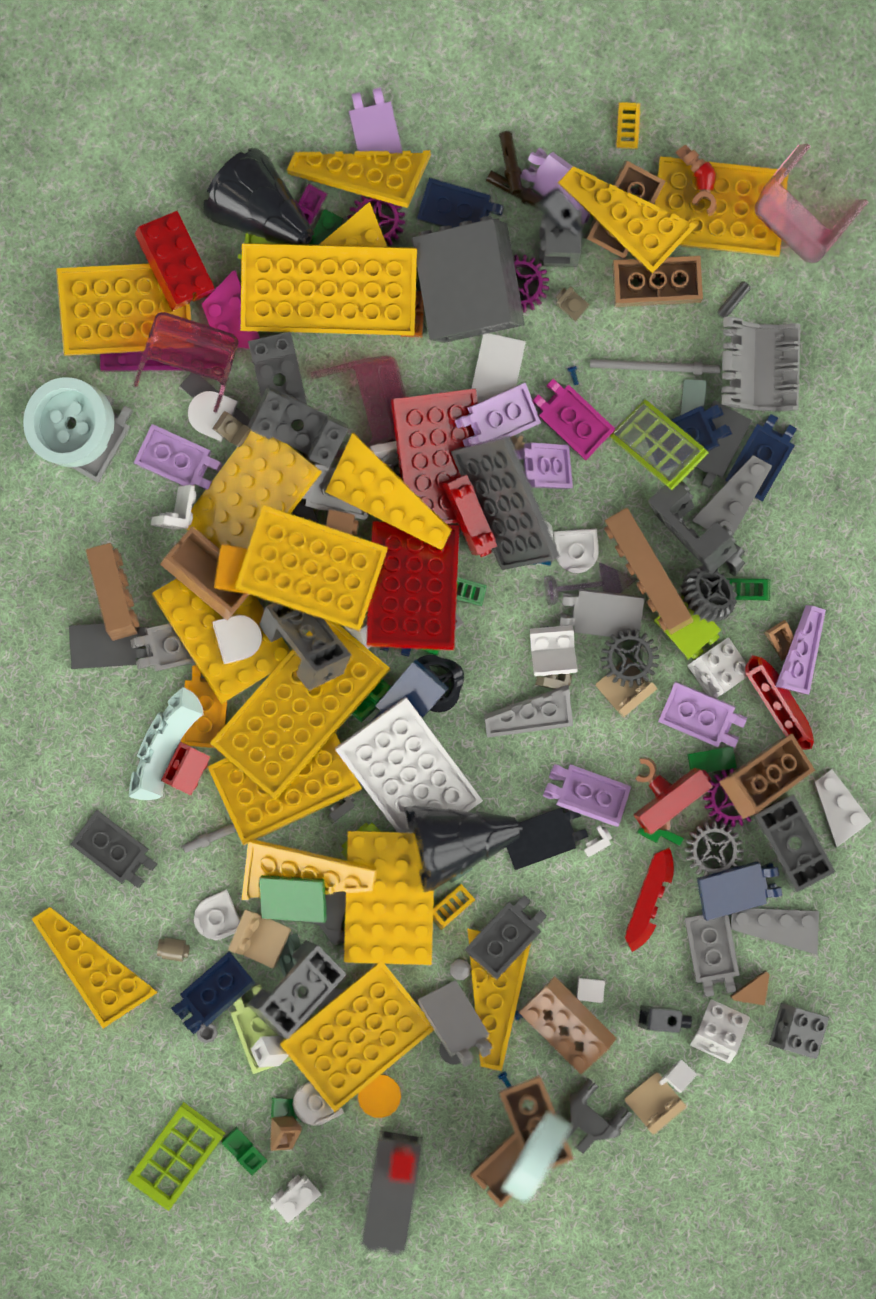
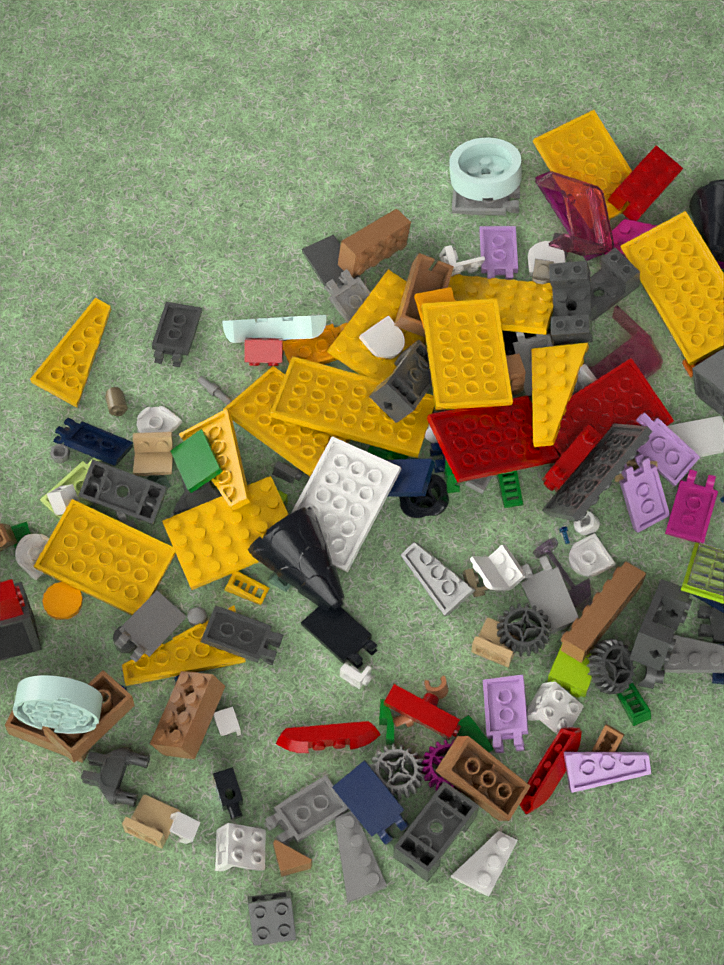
camera: 65 degrees right, 25 degrees down
(588, 794) = (393, 650): lavender tile -> none

